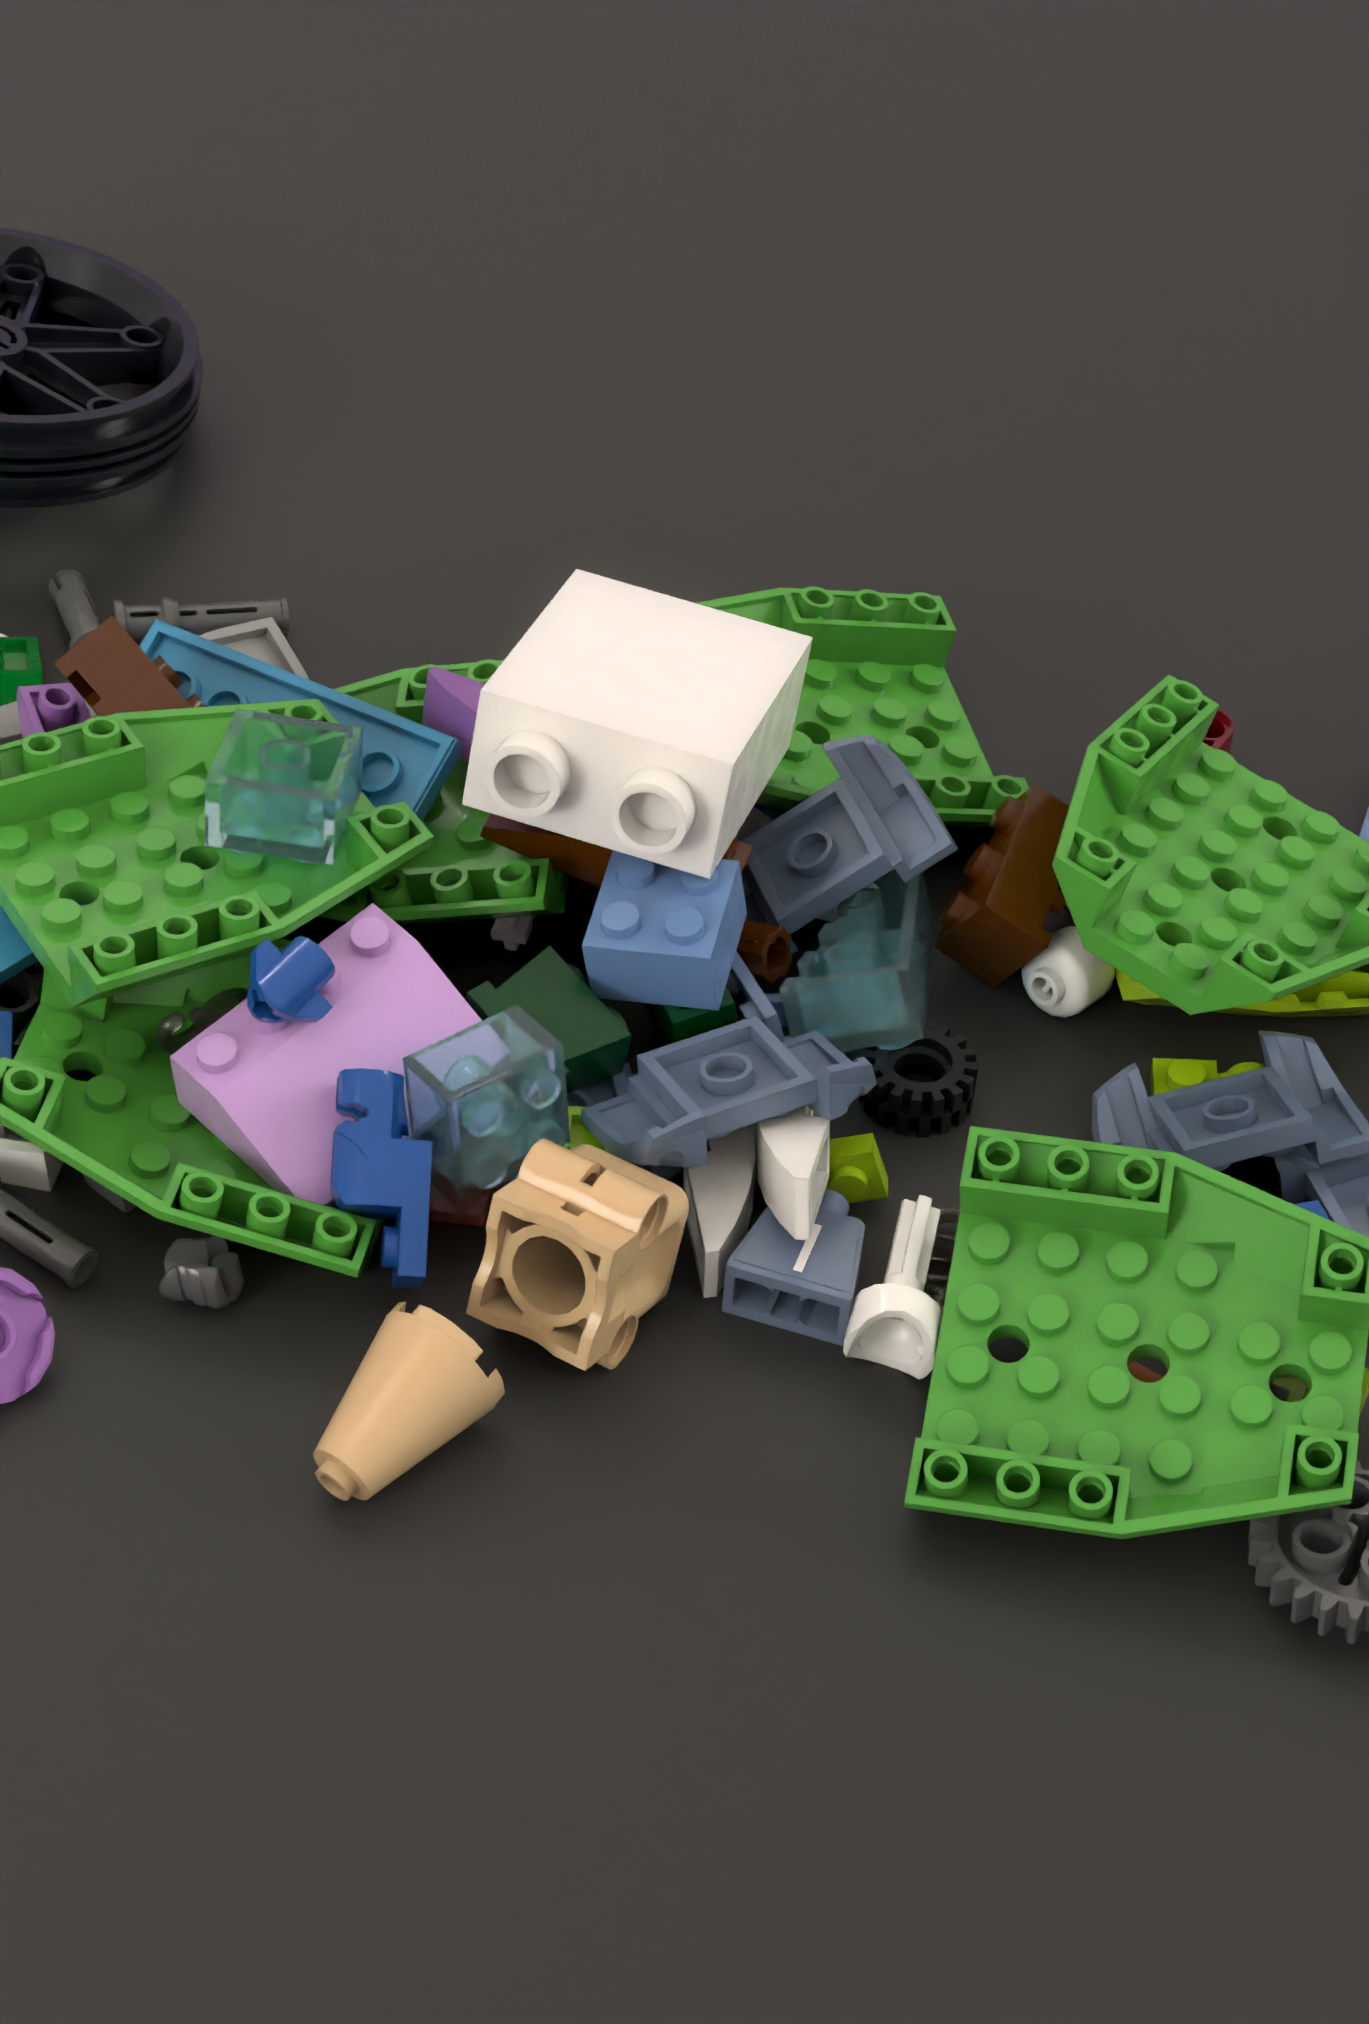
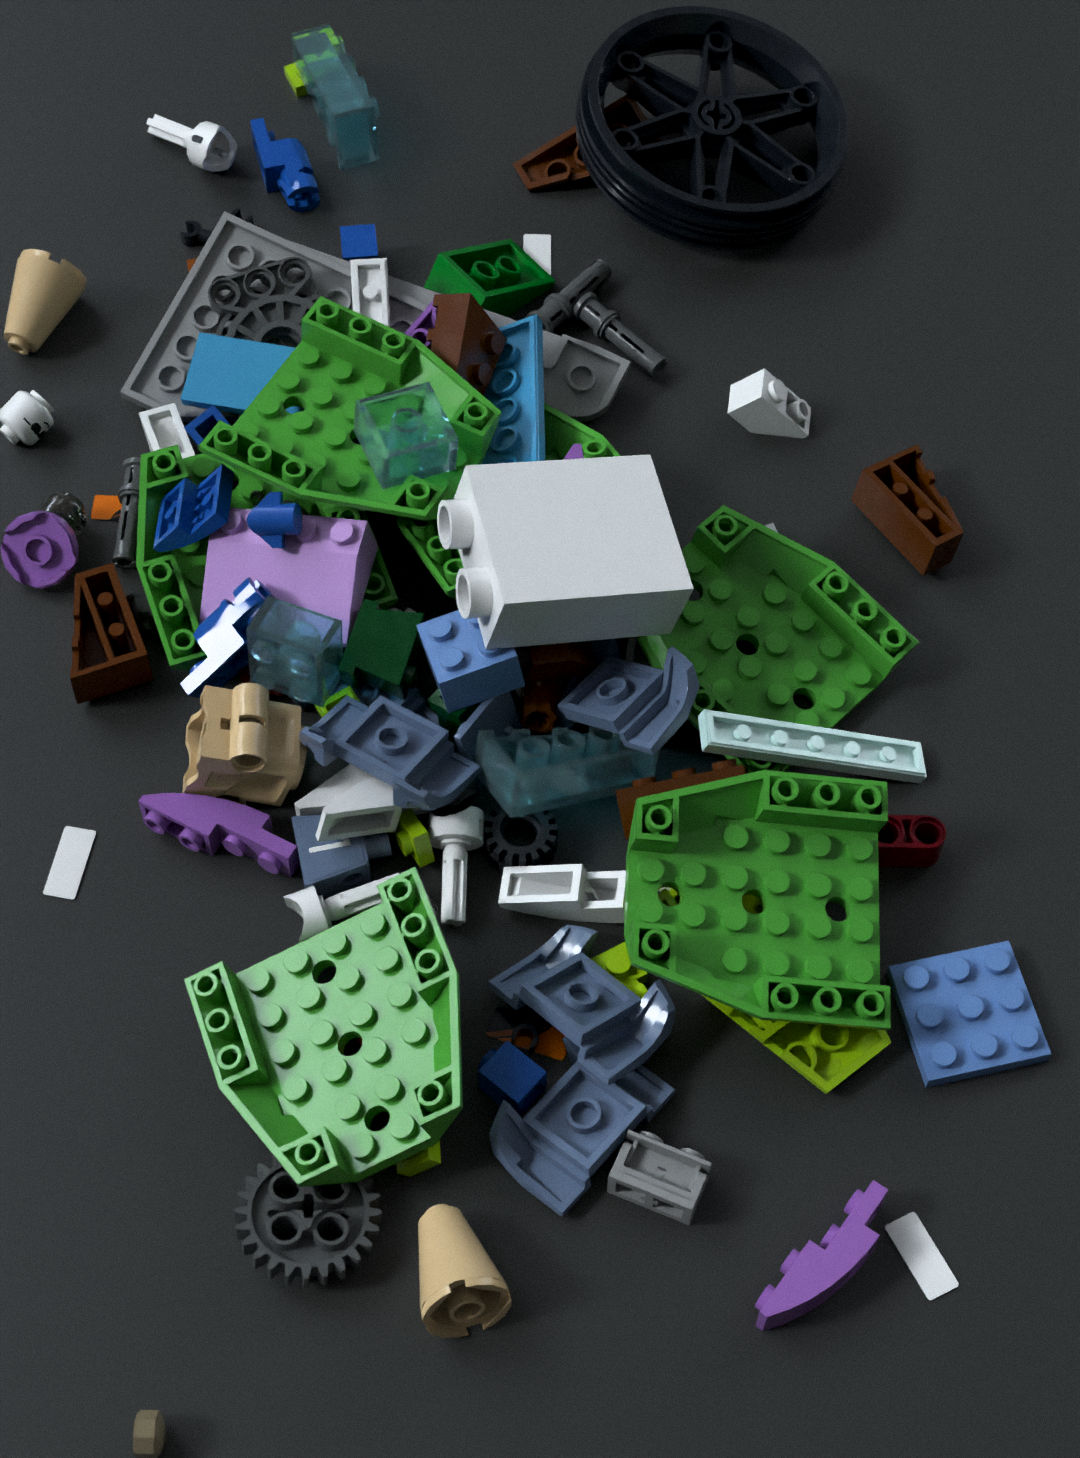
camera: 60 degrees right, 15 degrees up
(144, 1090) = (193, 510): none -> blue slope
(217, 1329) = (105, 638): none -> reddish brown wedge
(403, 1403) = (110, 733): tan cone -> none
(452, 552) = (768, 406): none -> white slope
(564, 1576) = (69, 862): none -> white sticker
(645, 1367) = (208, 821): none -> medium lavender slope
(733, 523) = (908, 509): none -> reddish brown wedge
(886, 1118) = (456, 836): none -> white piece
(1019, 747) = (811, 746): none -> light aqua tile
(1045, 1068) = (564, 892): none -> white slope

